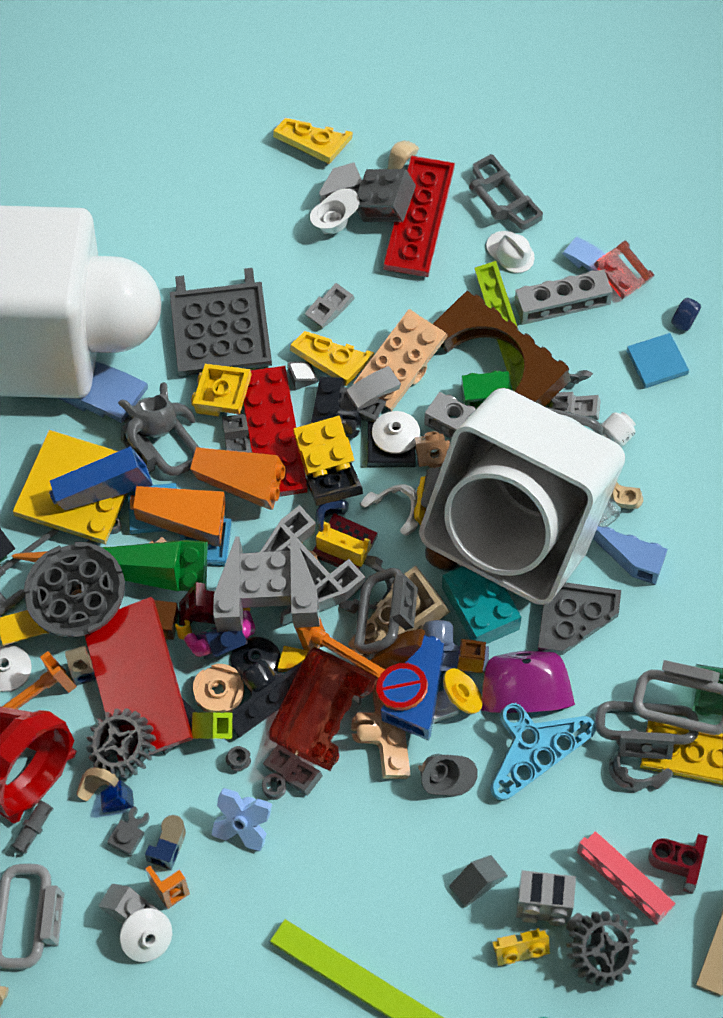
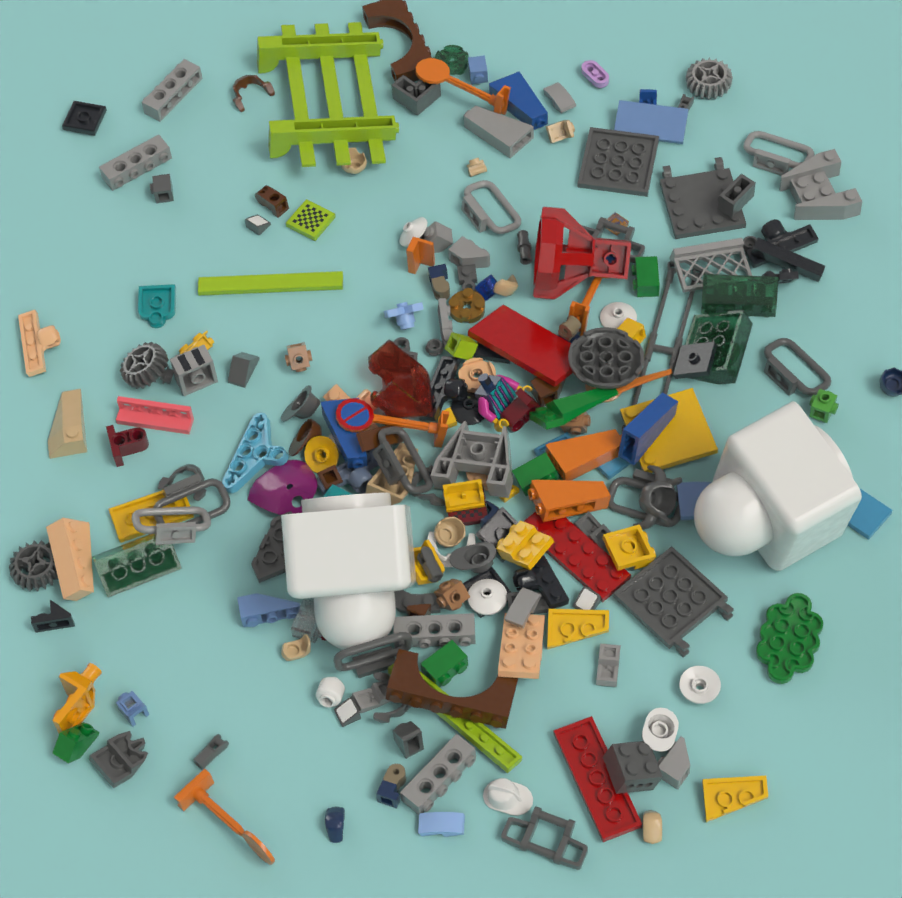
camera: 150 degrees right, 5 degrees down
(107, 859) = (467, 253): none -> light grey slope
(140, 737) = (506, 305): dark grey gear -> none
(148, 229) = (789, 638): none -> green plate
(160, 777) = (467, 297): none -> pearl gold plate
(204, 778) = (444, 323): none -> light grey hinge
(249, 522) = (536, 469): none -> green brick
(259, 229) = (703, 677): none -> white dish
(265, 581) = (484, 421): light grey wedge -> none
(382, 470) = (474, 557): none -> dark grey piece
(386, 519) = (449, 532): none -> tan hair
(406, 840) = (298, 350): none -> medium nougat brick
(468, 727) = (306, 432): none -> reddish brown cap
(571, 336) = (408, 738): none -> dark grey slope
(610, 403) = (347, 712): none -> slope
(614, 313) = (390, 785): none -> leg
(618, 273) = (408, 821): clear red plate -> none
(657, 360) = (335, 771): dark azure tile -> none

